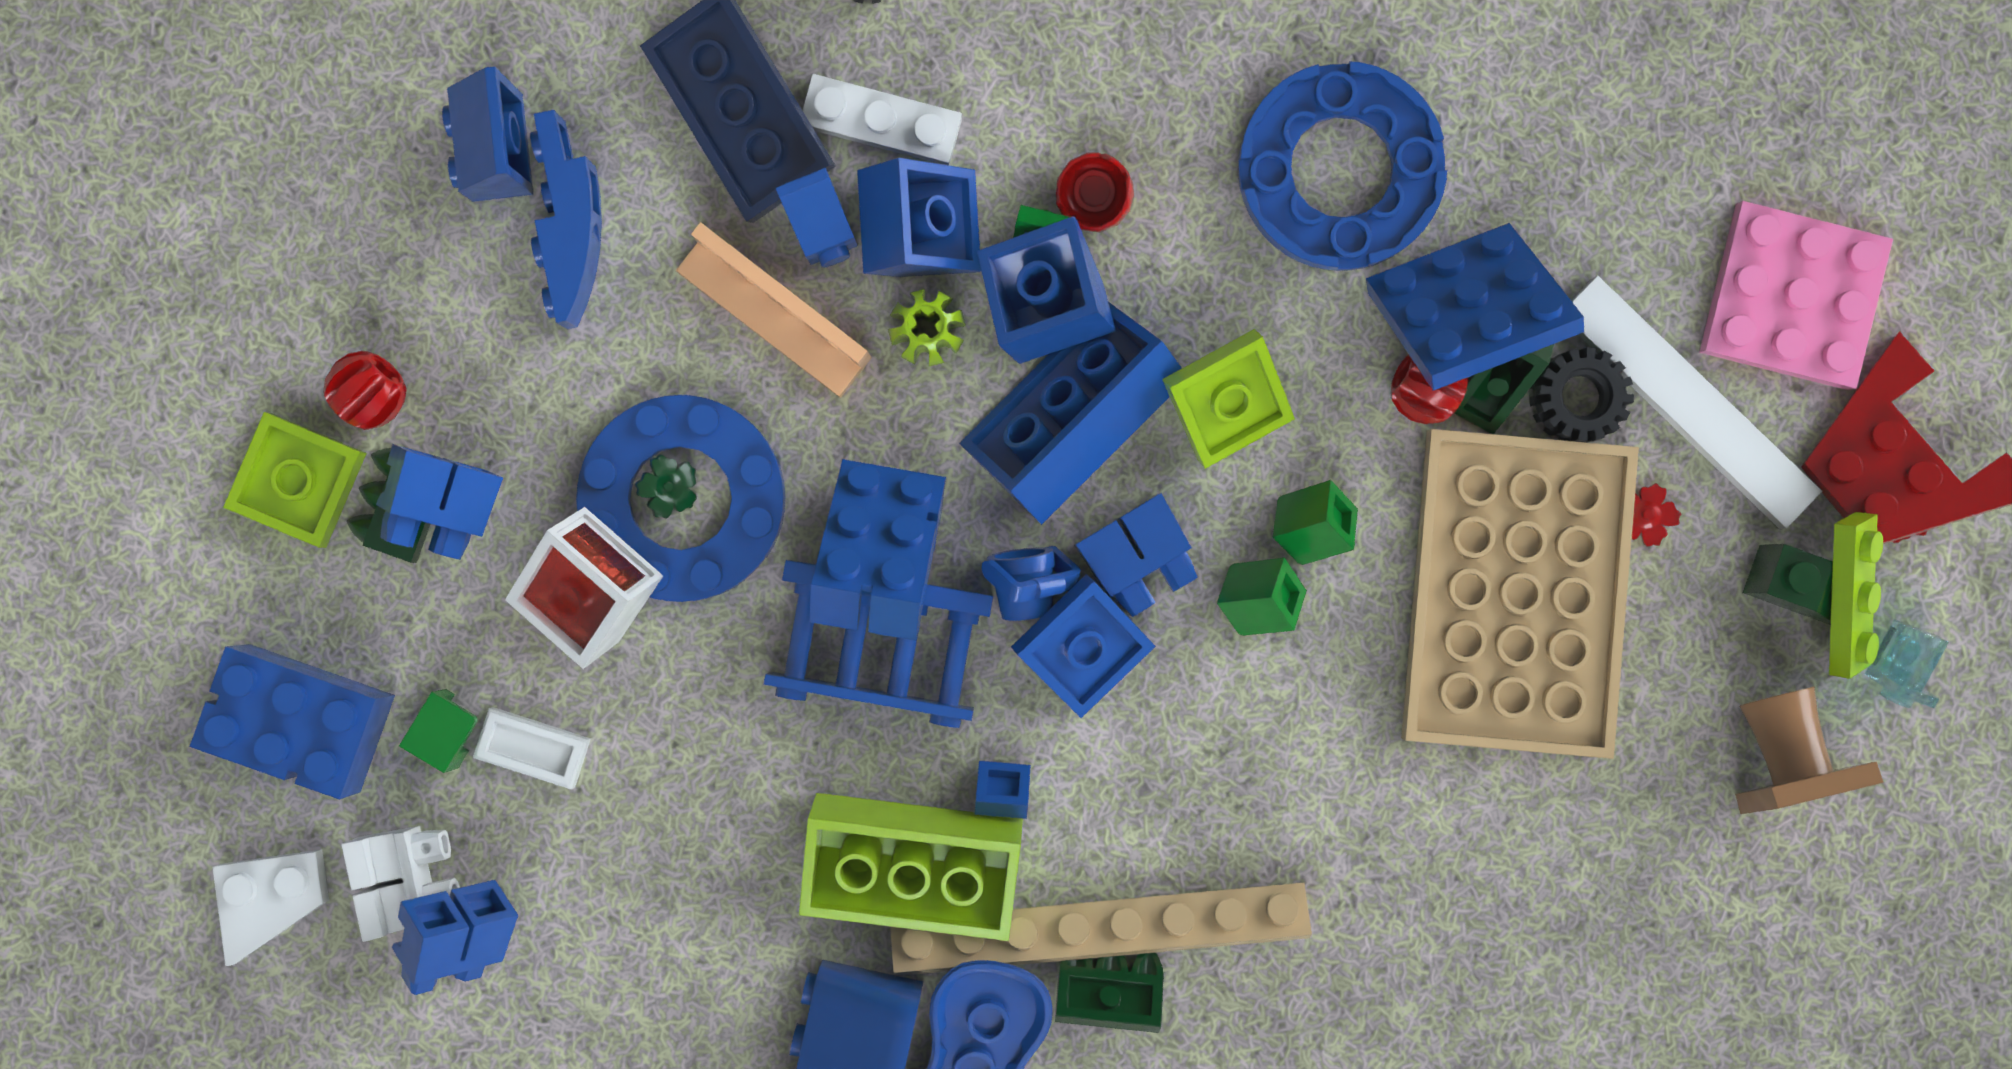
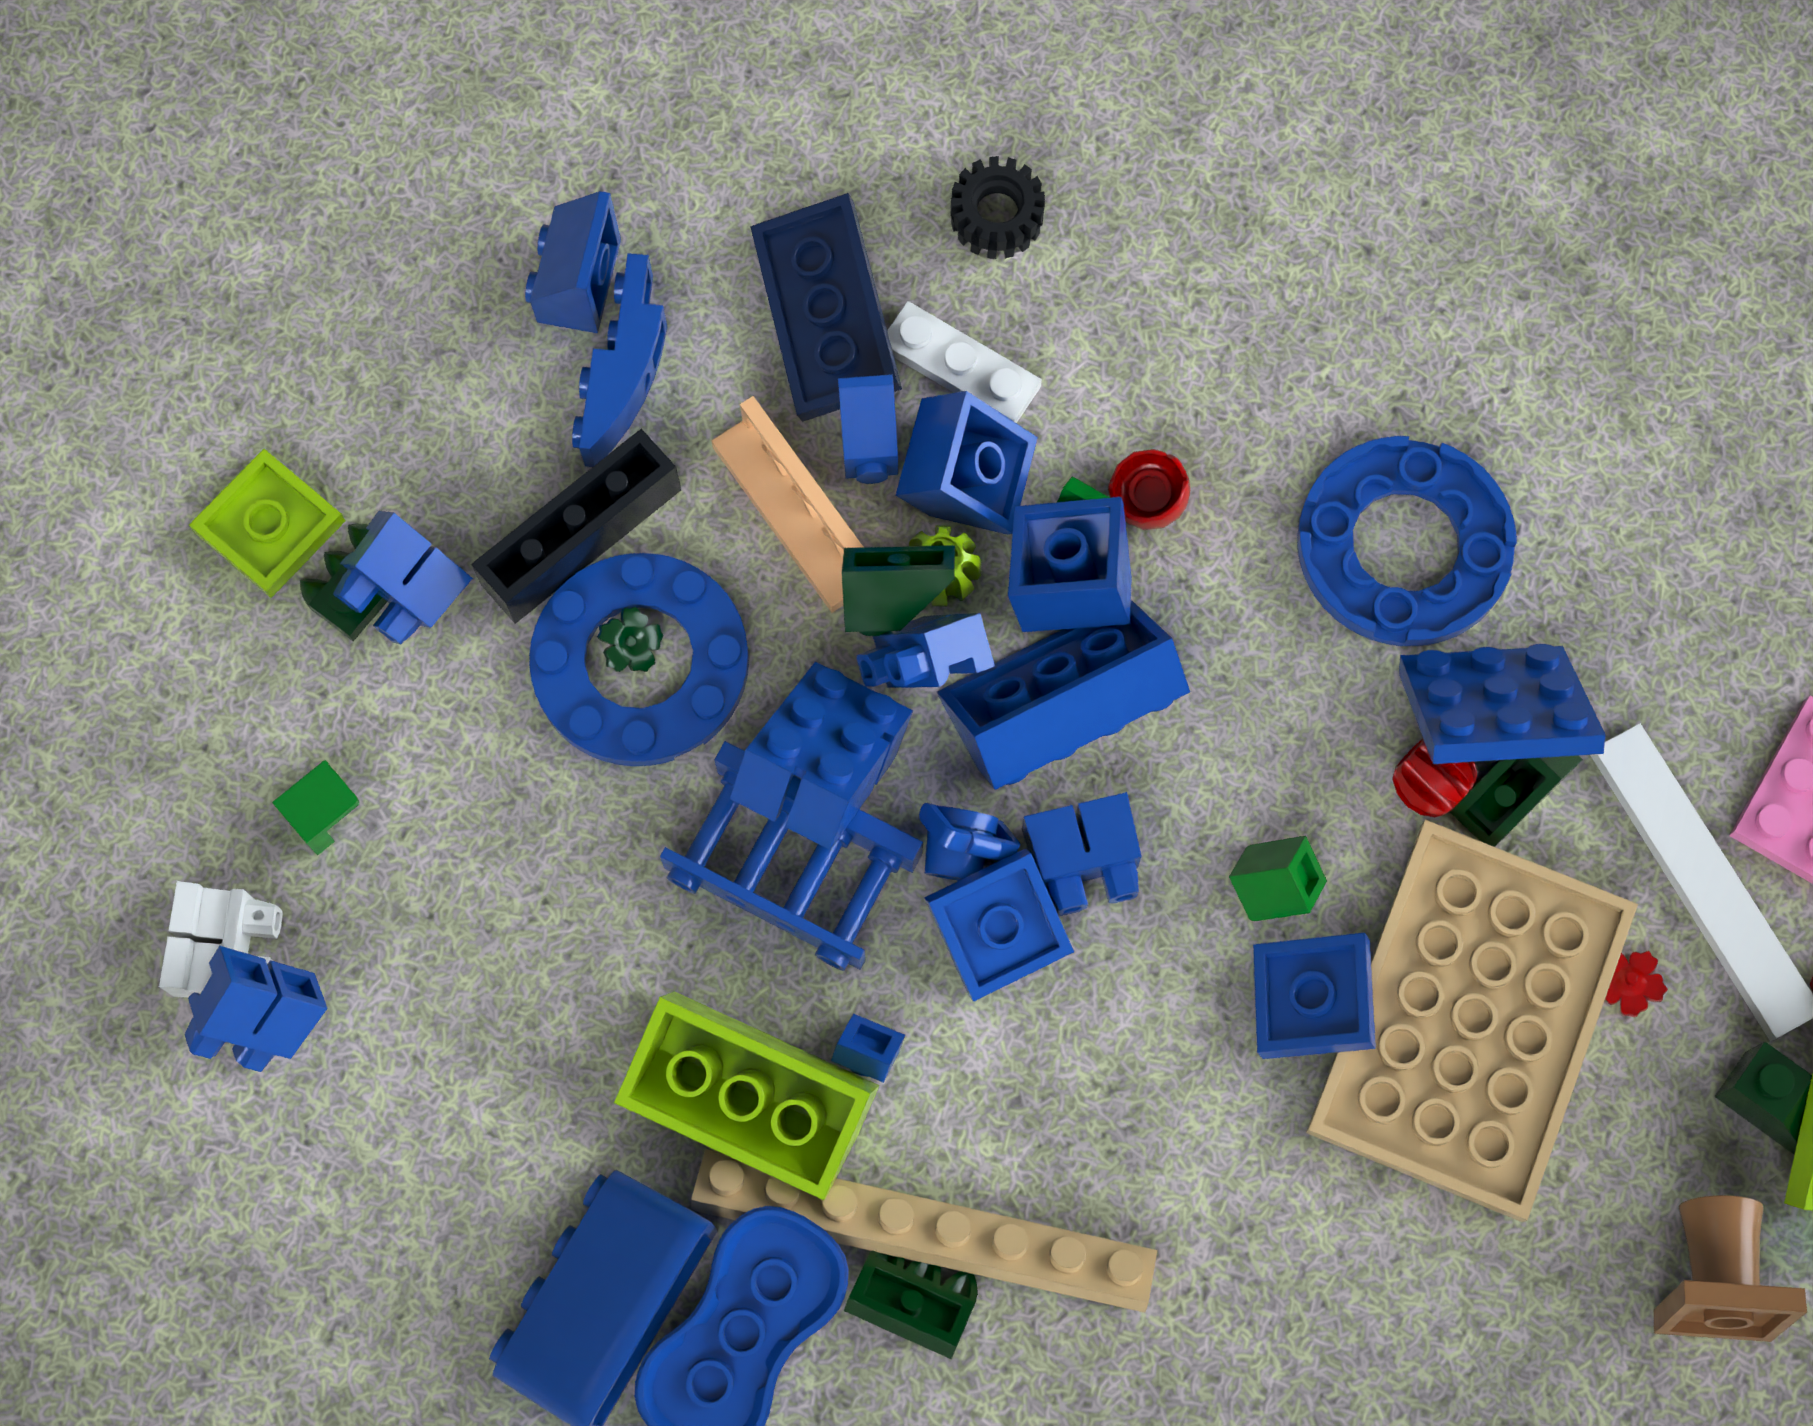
camera: 20 degrees right, 15 degrees down
(266, 898) = (74, 920): white wing -> none
(292, 721) = (176, 744): blue piece -> none
(364, 390) = (369, 456): red piece -> none
(531, 748) = (400, 857): white tile -> none
(580, 397) = (577, 526): none -> black brick
(583, 587) = (514, 704): piece -> none
(891, 369) = (892, 585): none -> dark green slope
(938, 420) = (927, 652): none -> blue hips
(1229, 398) = (1225, 724): lime plate -> none
(1262, 597) = (1200, 936): green panel -> none
(1378, 622) = (1314, 996): none -> blue plate
(1611, 391) = (1610, 810): black tyre -> none

